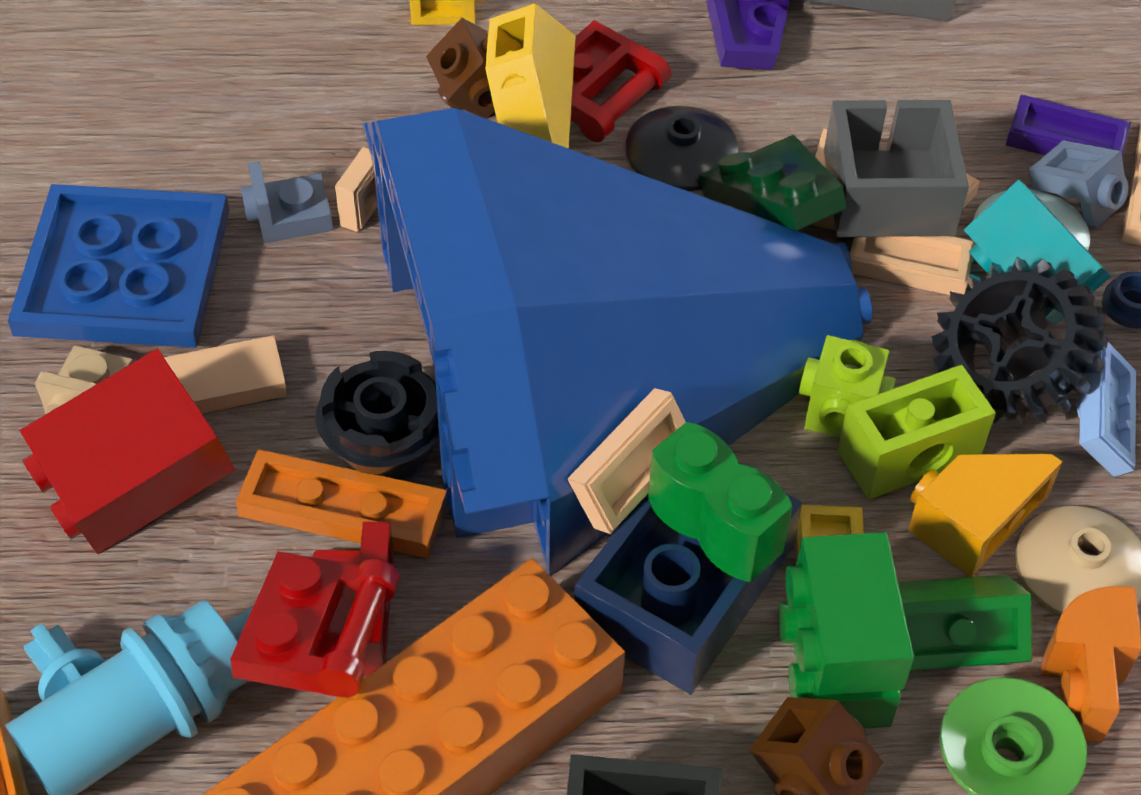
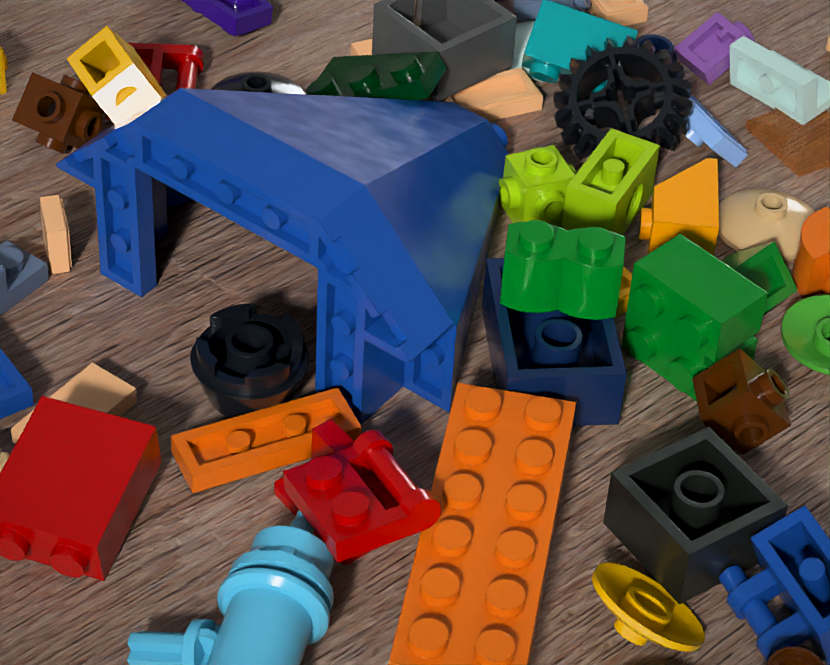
camera: 40 degrees left, 10 degrees down
(619, 469) = (477, 280): light nougat tile -> none

